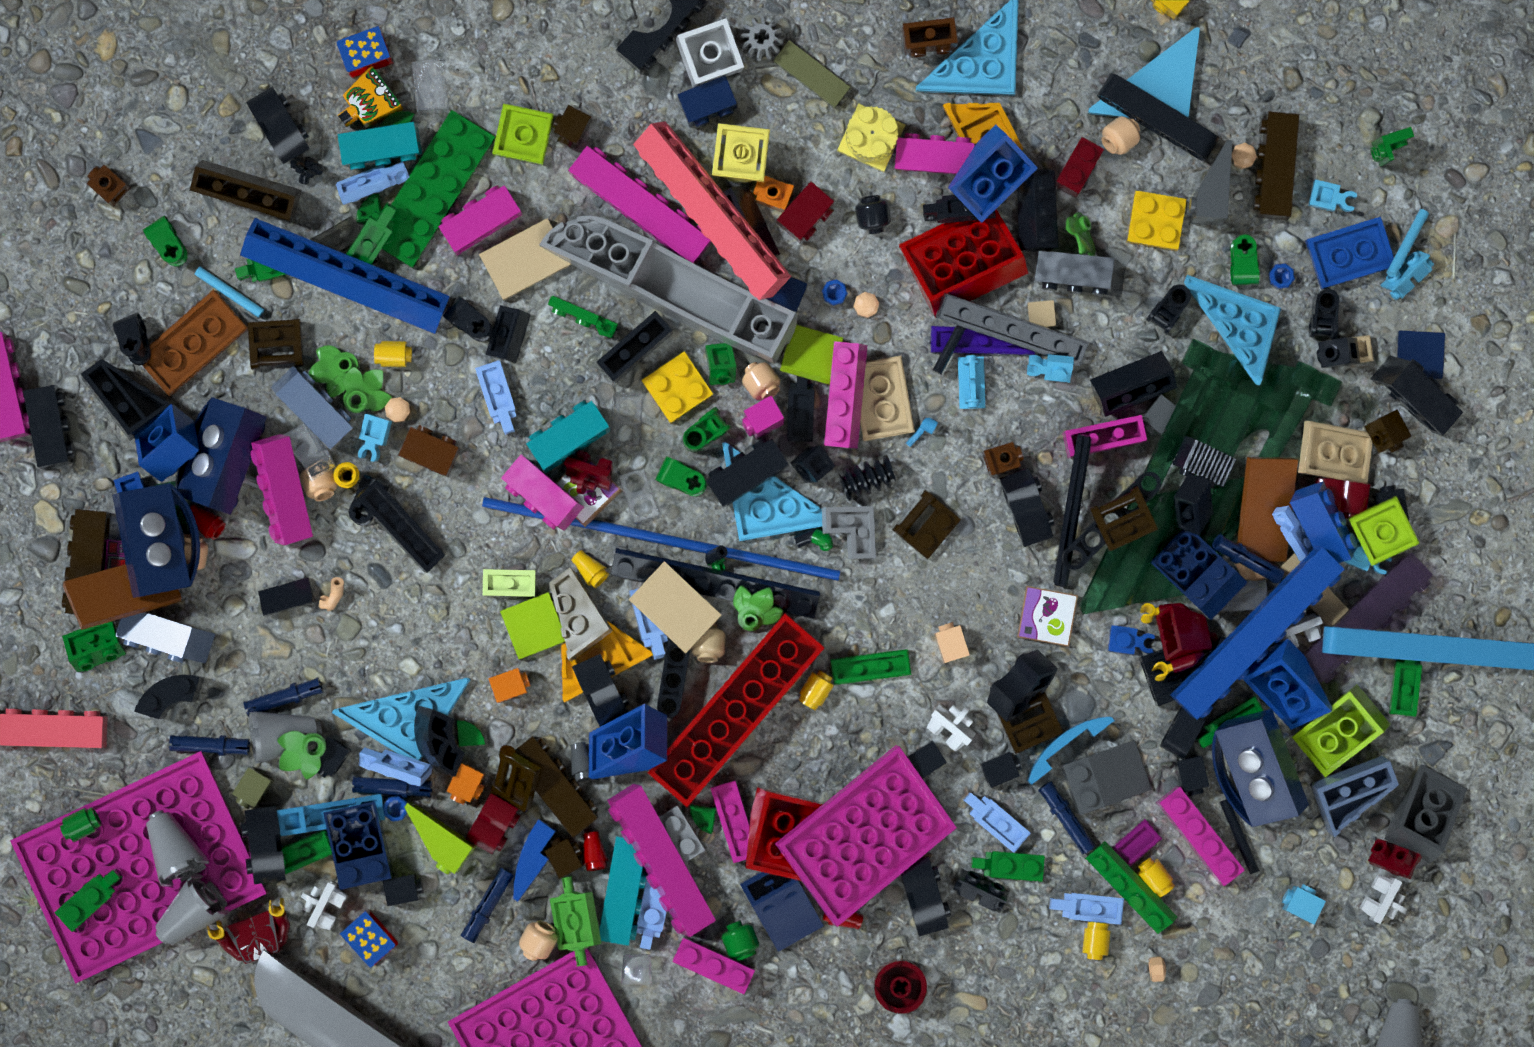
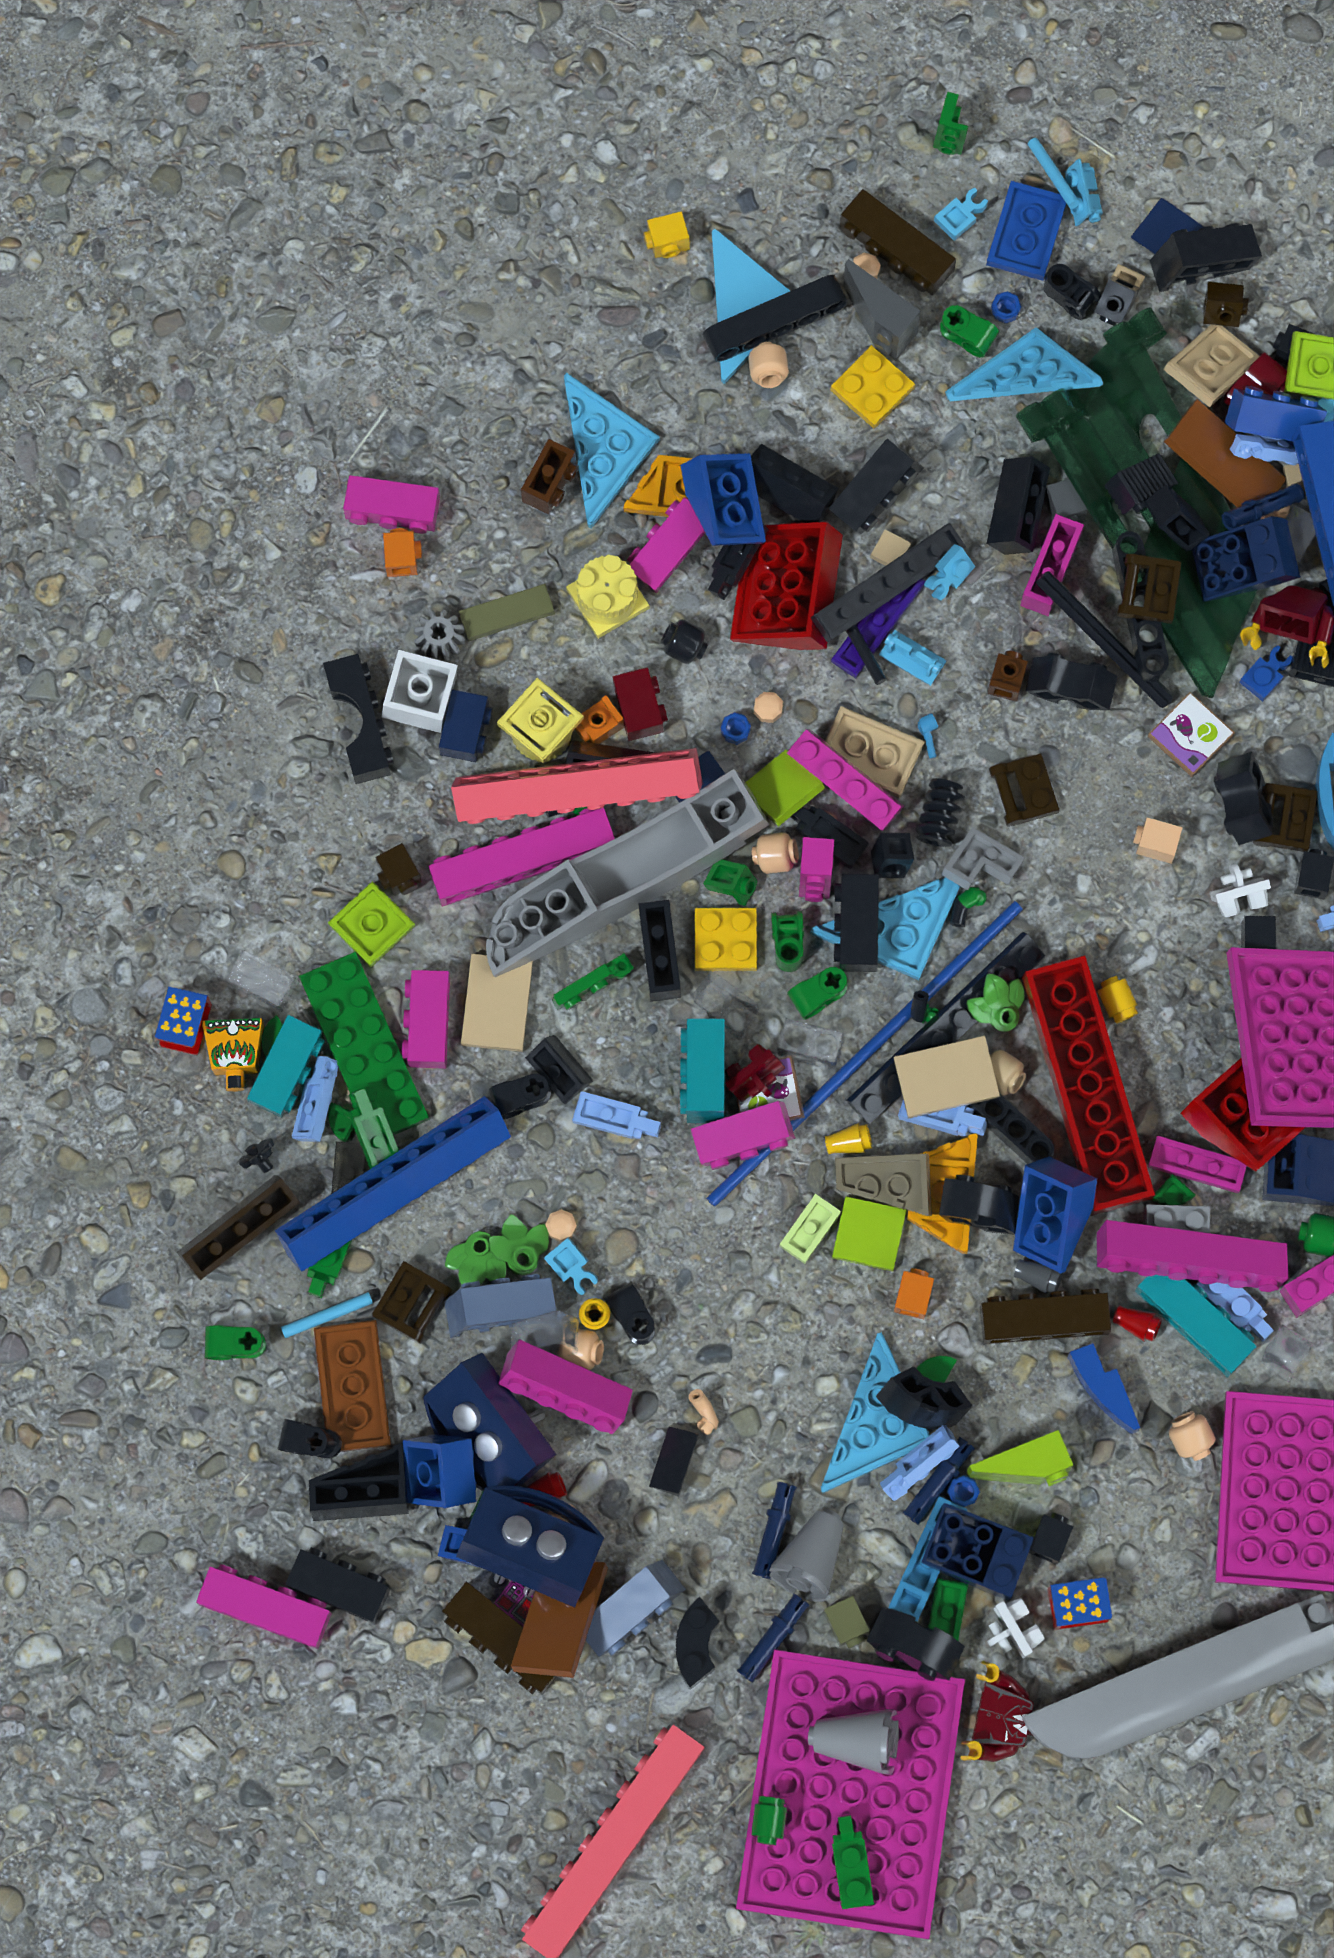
camera: 50 degrees left, 10 degrees down
(93, 646) = (593, 1690): green bracket -> none
(113, 191) = (145, 1368): reddish brown brick -> none
(191, 910) = (934, 1764): light grey cone -> none
(279, 127) = (195, 1152): black brick -> none
(298, 755) = (846, 1547): bright green plate -> none
(333, 757) = (867, 1522): black brick -> none
(392, 353) = (502, 1192): yellow brick -> none
(400, 526) = (681, 1295): black plate -> none
(430, 451) = (625, 1218): reddish brown brick -> none
(466, 784) = (987, 1403): orange brick -> none
(481, 914) = (1122, 1465): dark blue pin -> none
(492, 824) = (1042, 1402): dark red brick -> none
(522, 779) = (1022, 1343): dark brown plate -> none
(564, 856) = (1123, 1353): dark brown brick -> none
(575, 921) = (1196, 1383): bright green plate -> none
(870, 667) = (1129, 933): green tile -> none
(1079, 167) = (772, 421): dark red brick -> none
(1079, 227) = (831, 459): bright green plate -> none
(1169, 309) = (968, 431): black piece -> none

